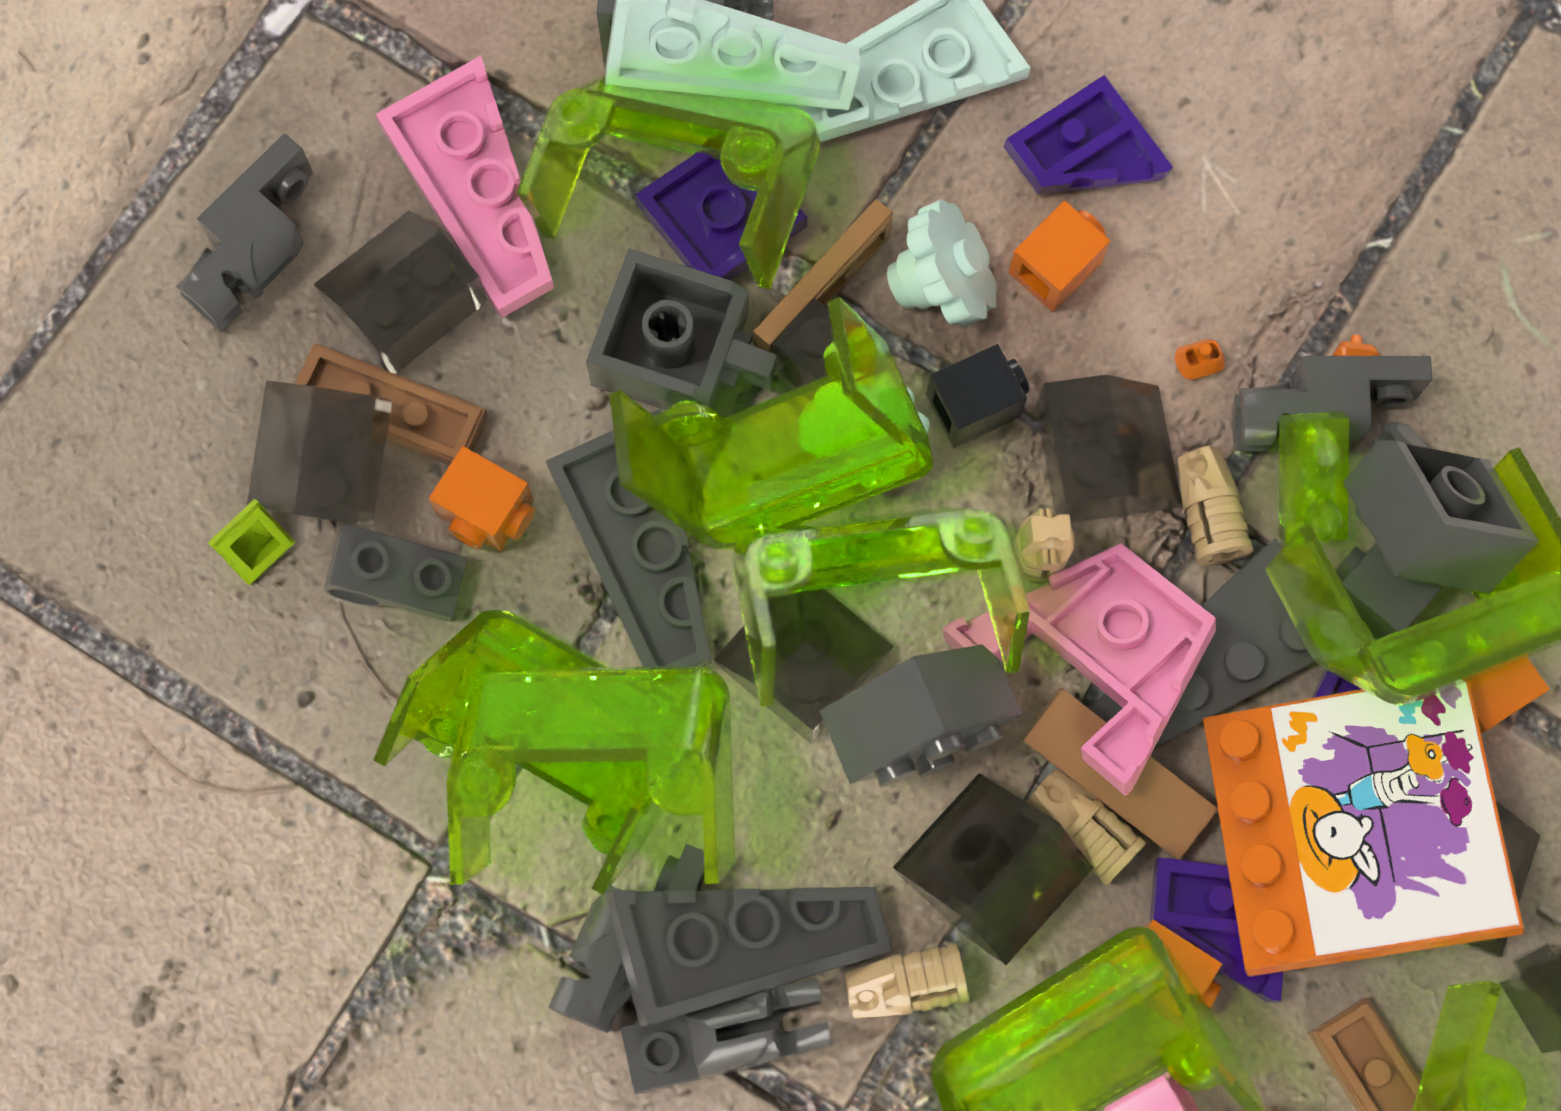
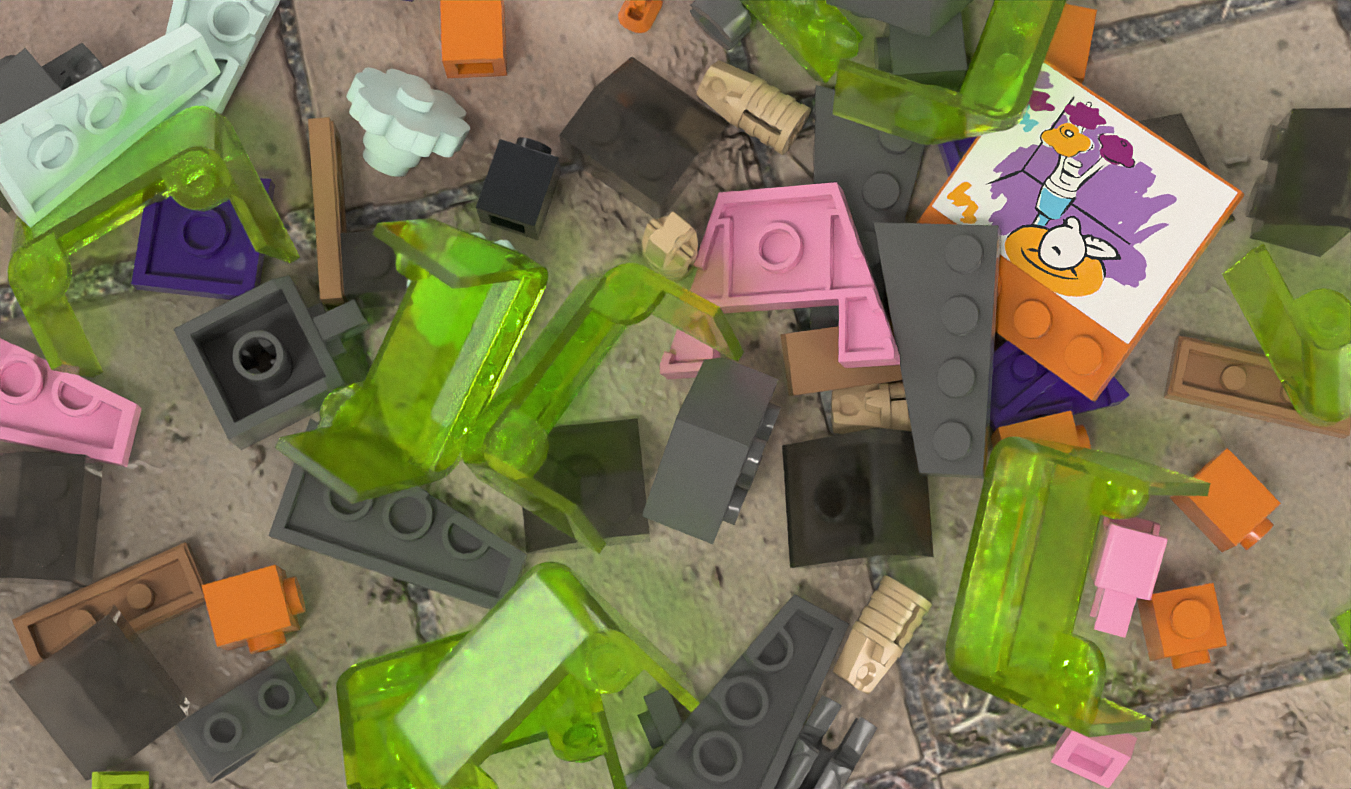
camera: 45 degrees left, 5 degrees up
(1186, 805) = (944, 323): none -> dark grey wing

